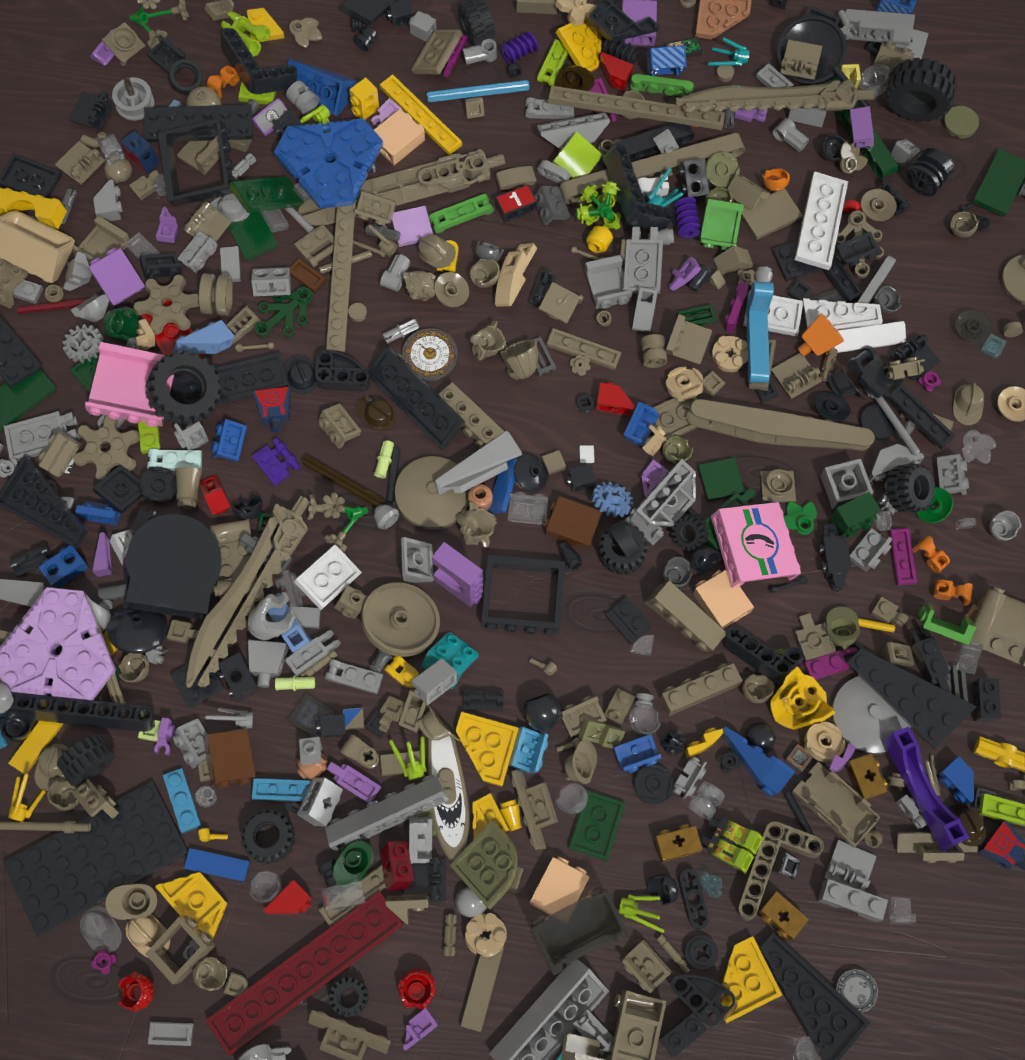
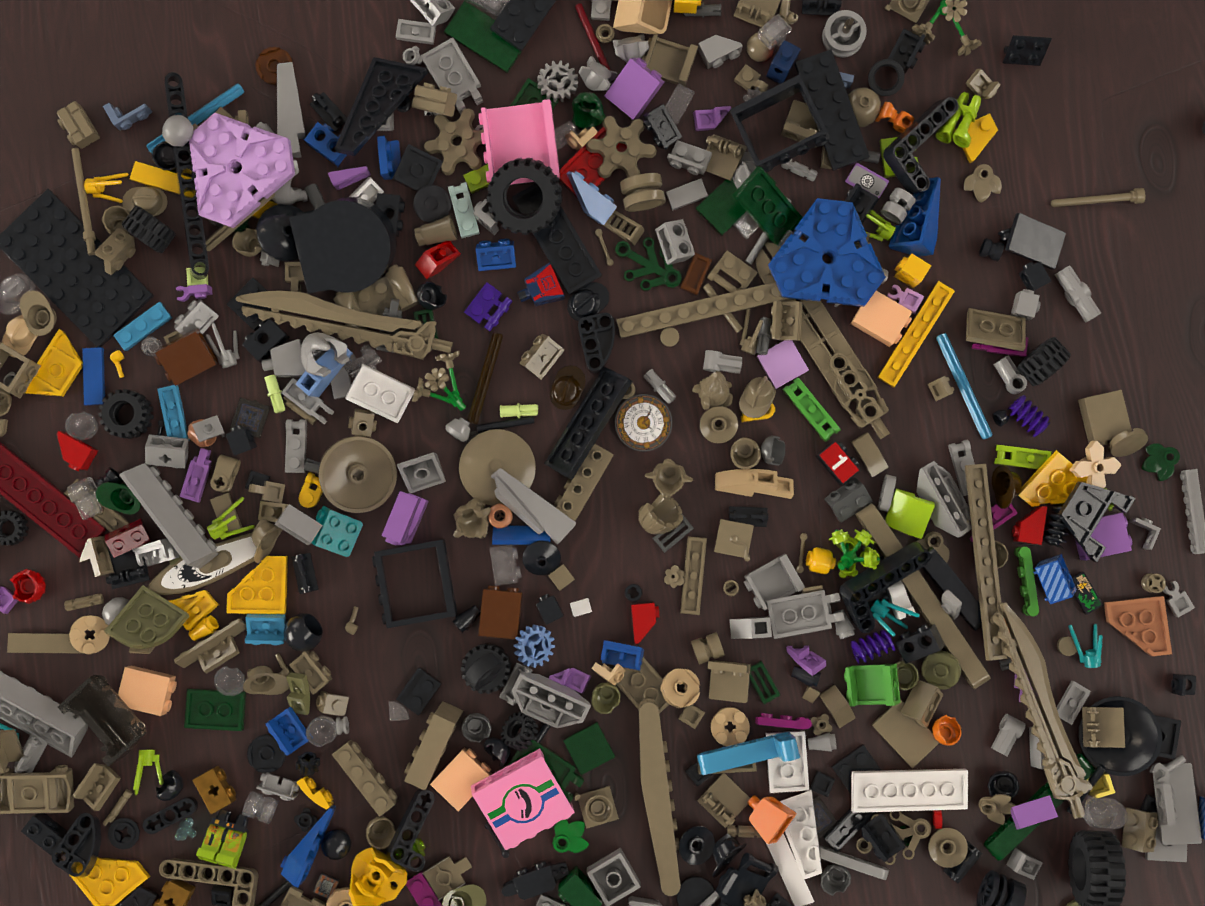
camera: 85 degrees right, 15 degrees up
(354, 718) = (256, 458): tile -> none

